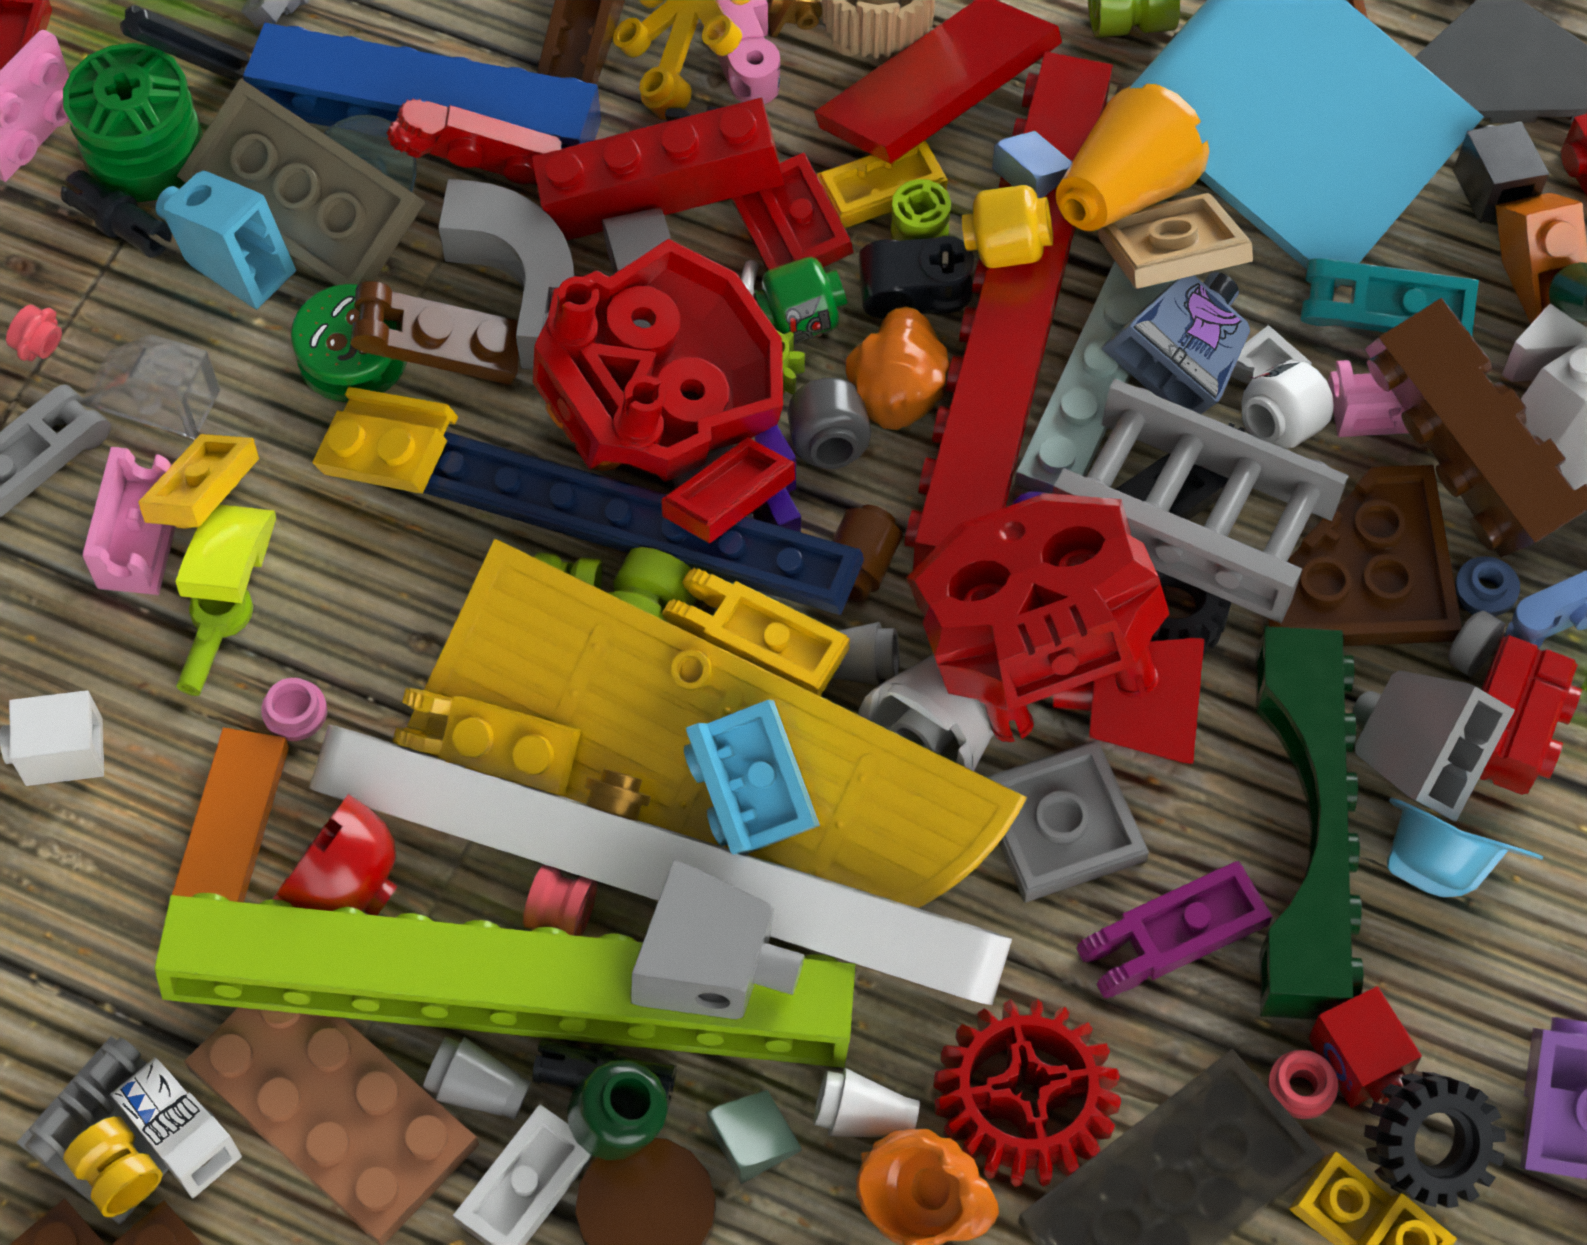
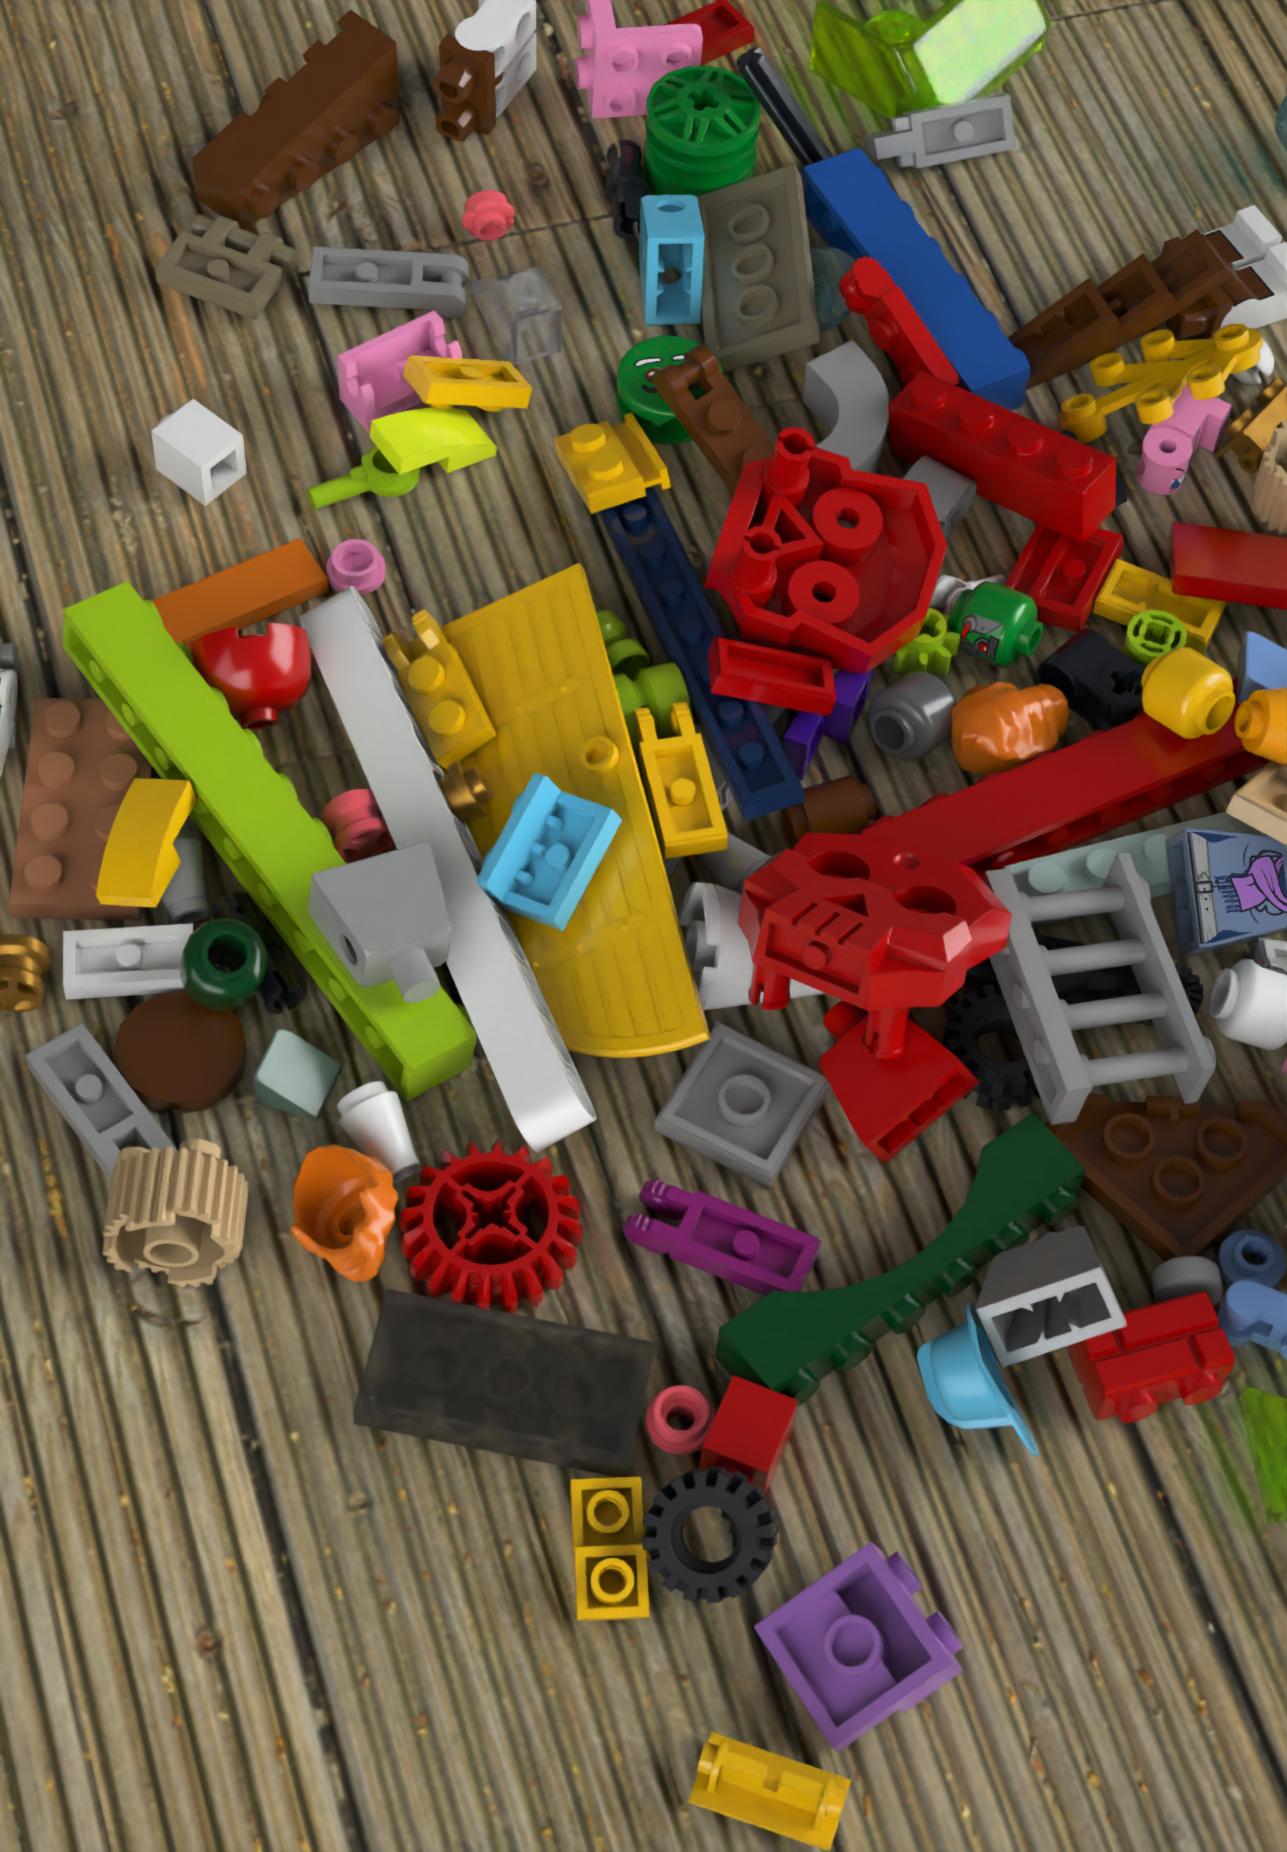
camera: 45 degrees right, 5 degrees down
(440, 1082) = (140, 845): none -> yellow slope

